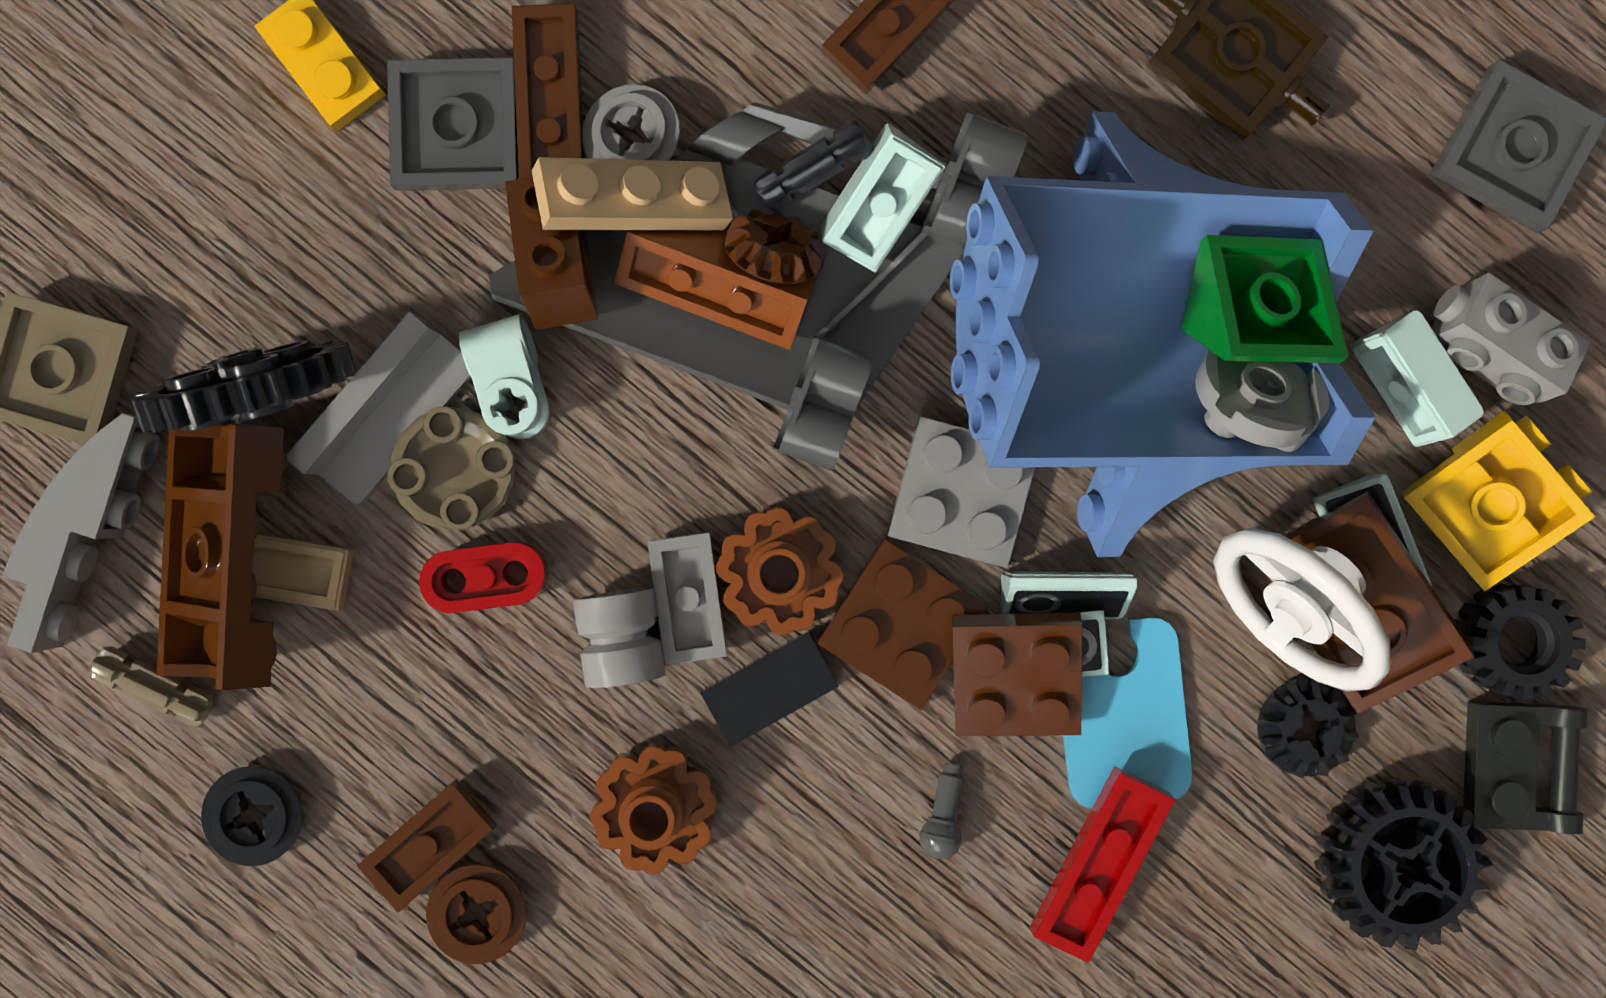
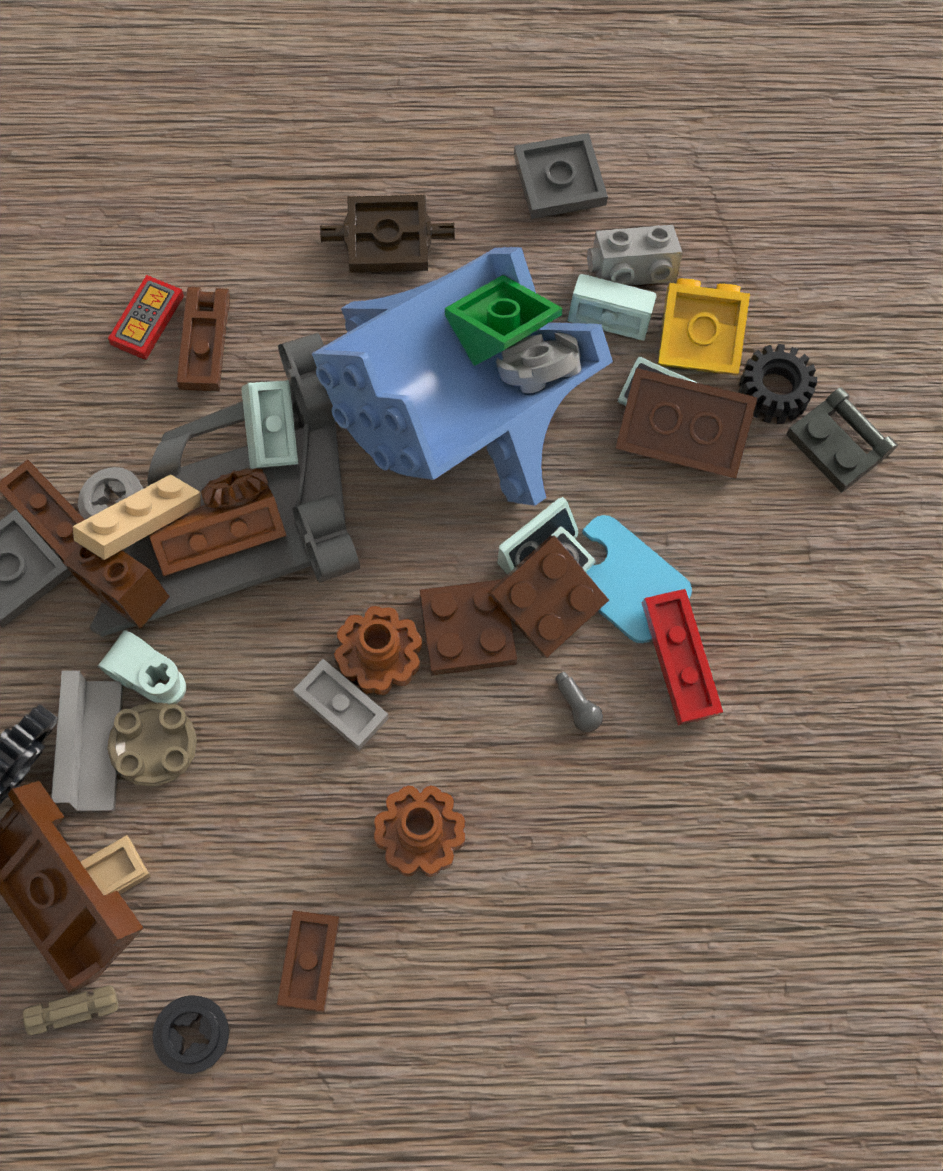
camera: 45 degrees left, 20 degrees down
(470, 940) = (360, 958): reddish brown gear -> none
(485, 577) = (214, 784): red plate -> none
(619, 638) = (315, 746): light grey wheel -> none
(769, 688) = (426, 717): black tile -> none
(813, 165) = (221, 436): black axle -> none
(955, 499) = (439, 537): light grey plate -> none
(1283, 716) = (728, 524): black gear -> none
(1309, 600) = (652, 427): white piece -> none
(1446, 892) = (841, 512): black gear -> none

